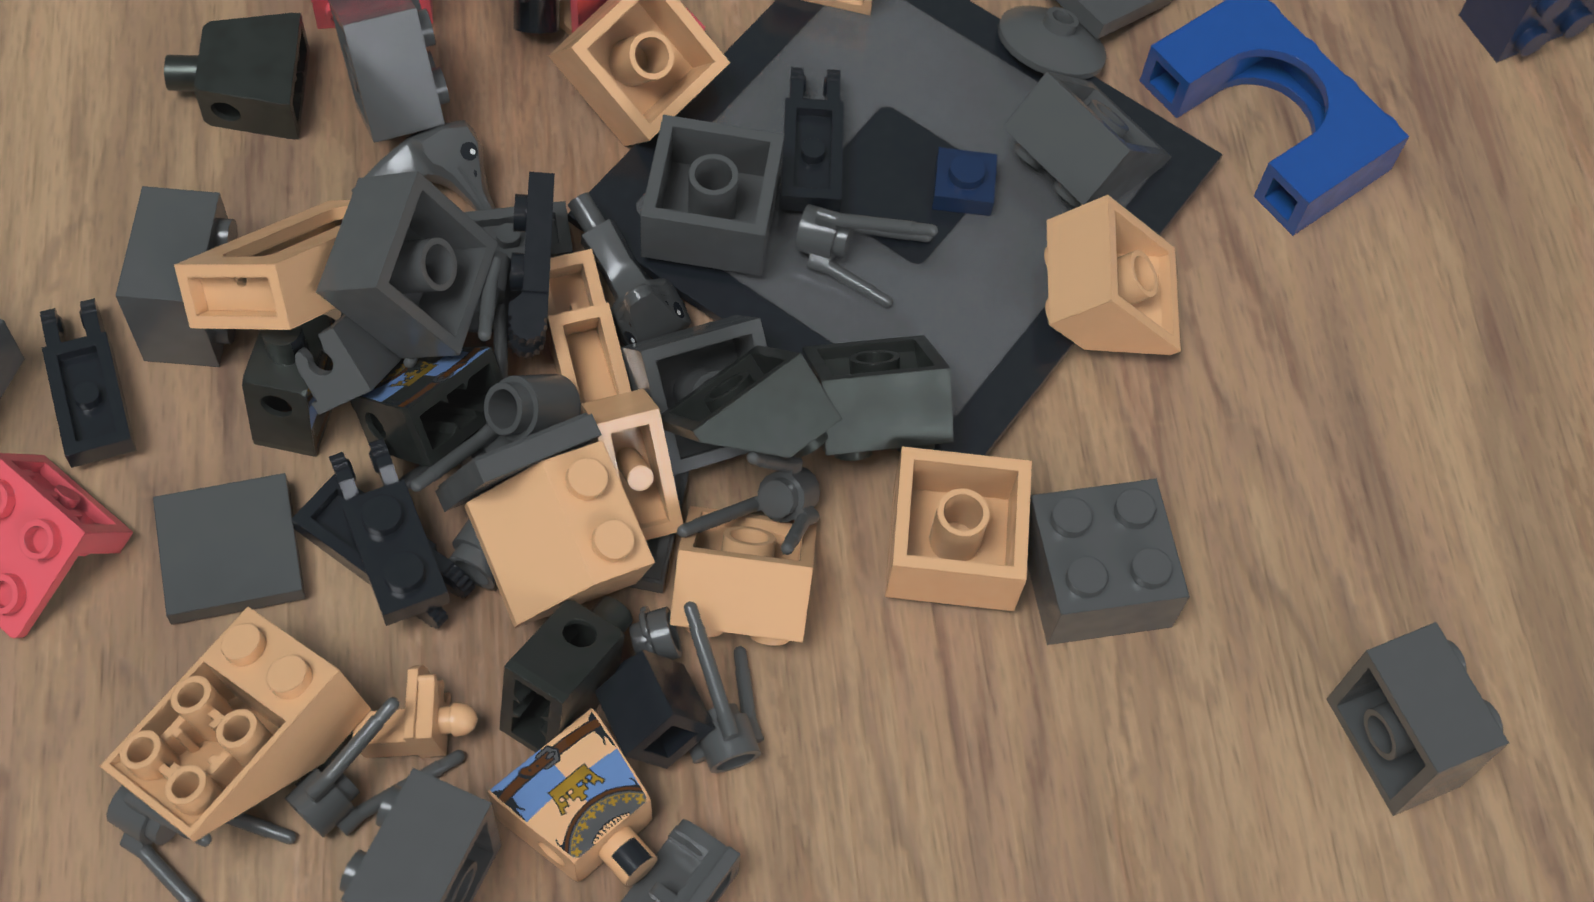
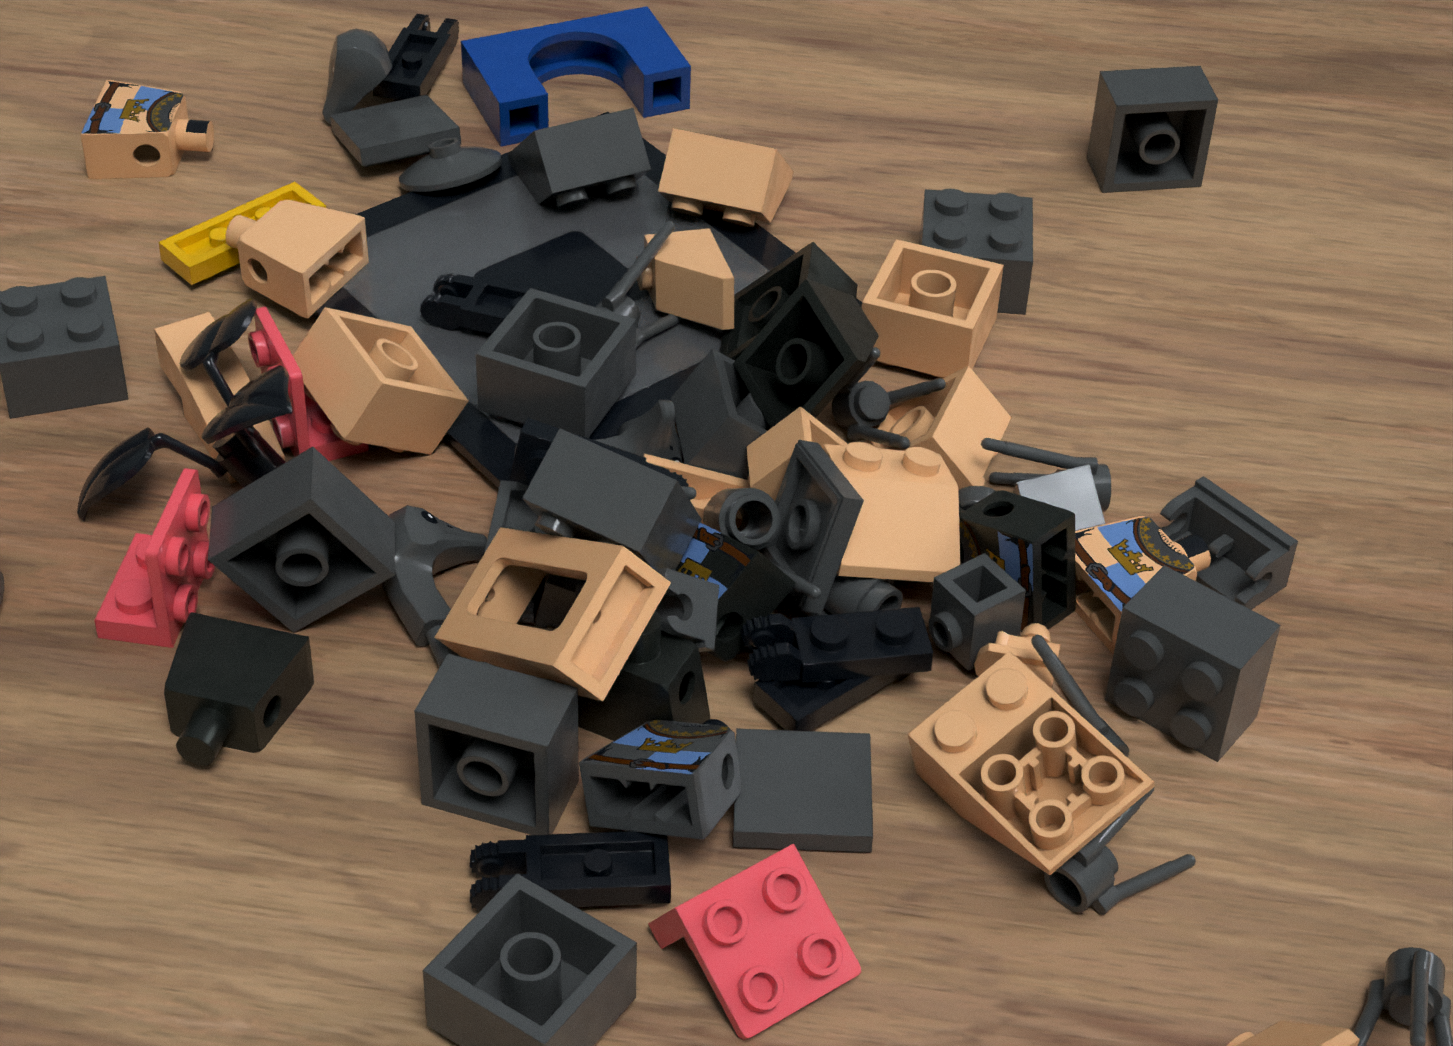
camera: 70 degrees left, 20 degrees down
(179, 423) = (664, 779): none -> dark grey torso
(467, 649) = (973, 606): none -> dark grey brick
(915, 284) = (691, 279): none -> light nougat slope
(964, 181) = (583, 241): dark blue plate -> none

